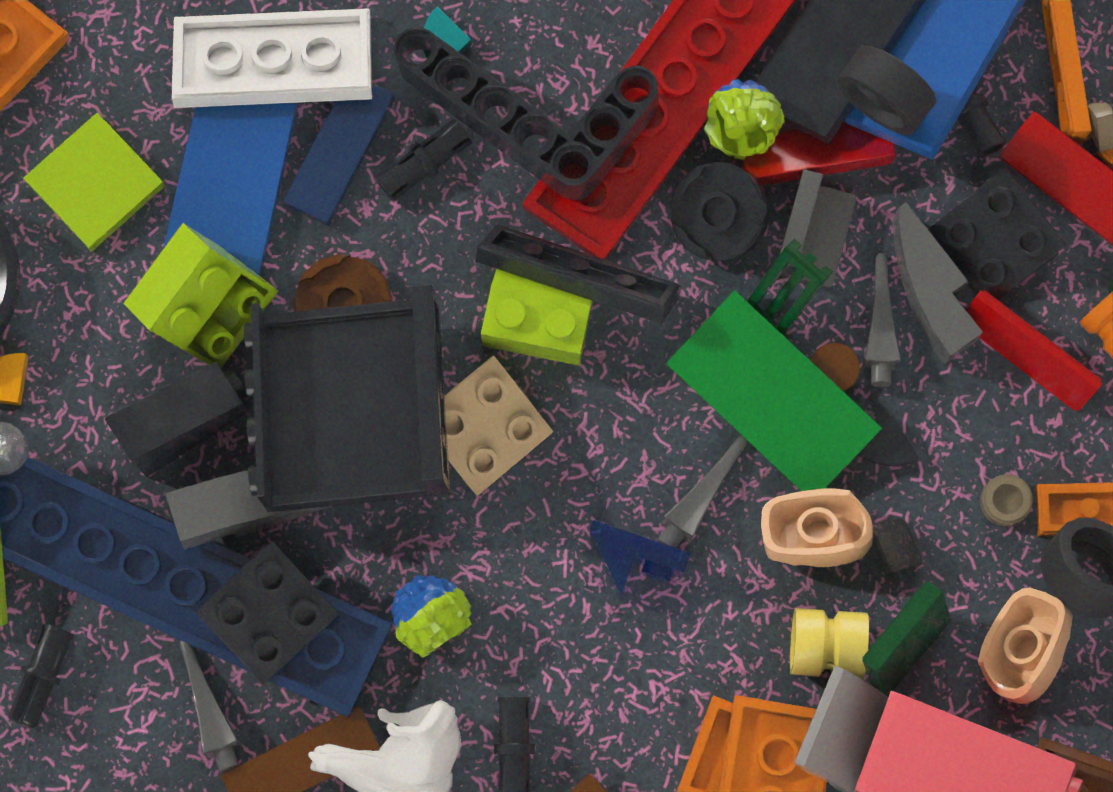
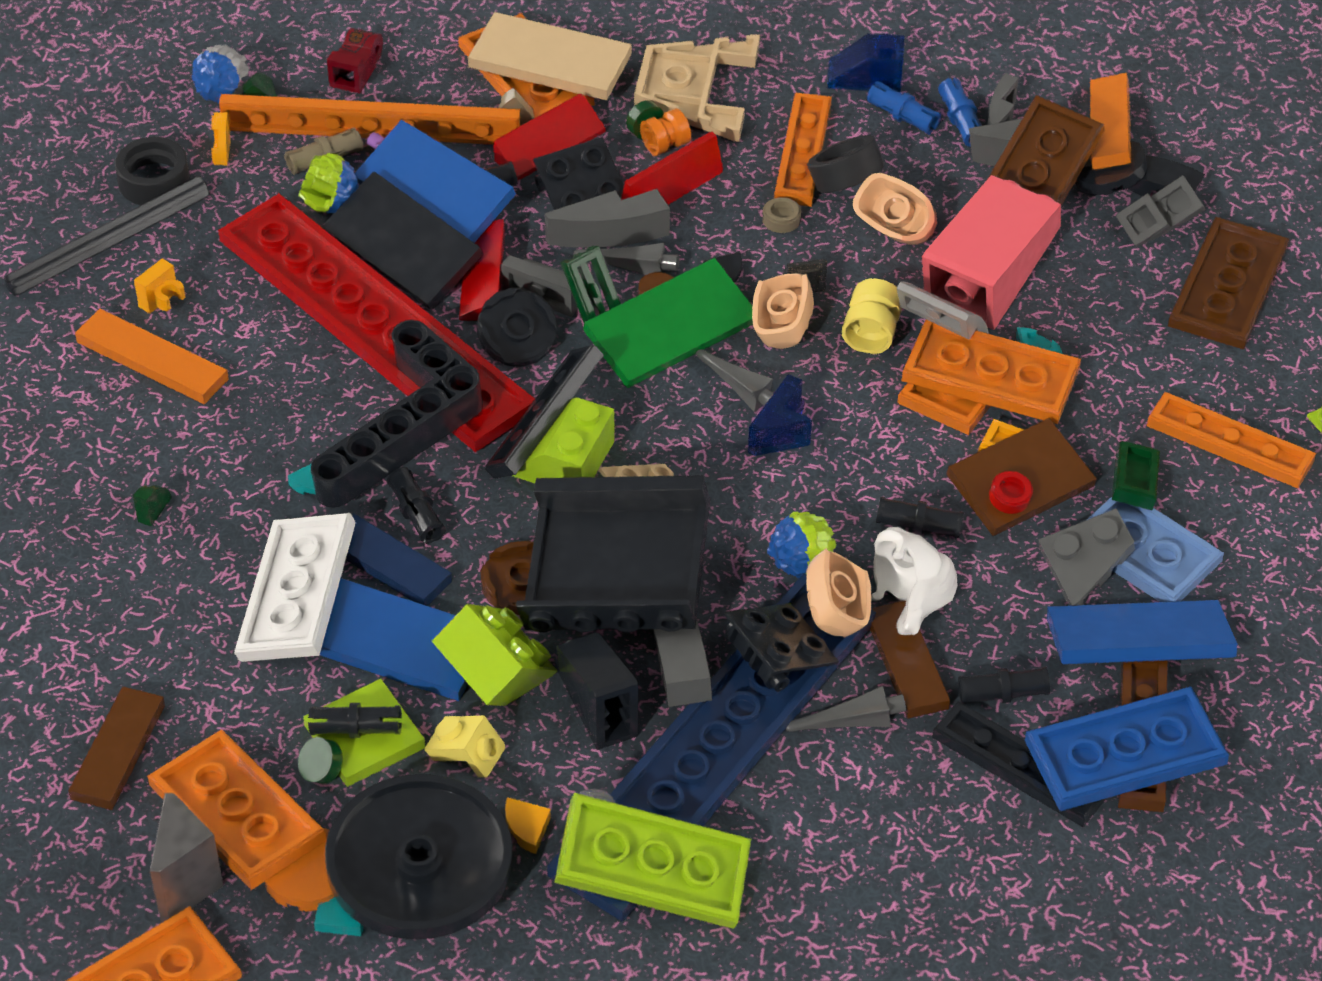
camera: 80 degrees left, 30 degrees down
(38, 145) = (320, 760): none -> tile
(40, 676) = (799, 824): black axle -> none
(84, 168) = (355, 720): none -> black pin
(89, 293) = (466, 740): none -> light yellow bracket
(340, 668) = (838, 594): none -> light nougat piece
(743, 119) = (450, 291): lime piece -> none
(886, 90) = (447, 182): black tyre -> none
(906, 638) = (873, 256): dark green tile -> none

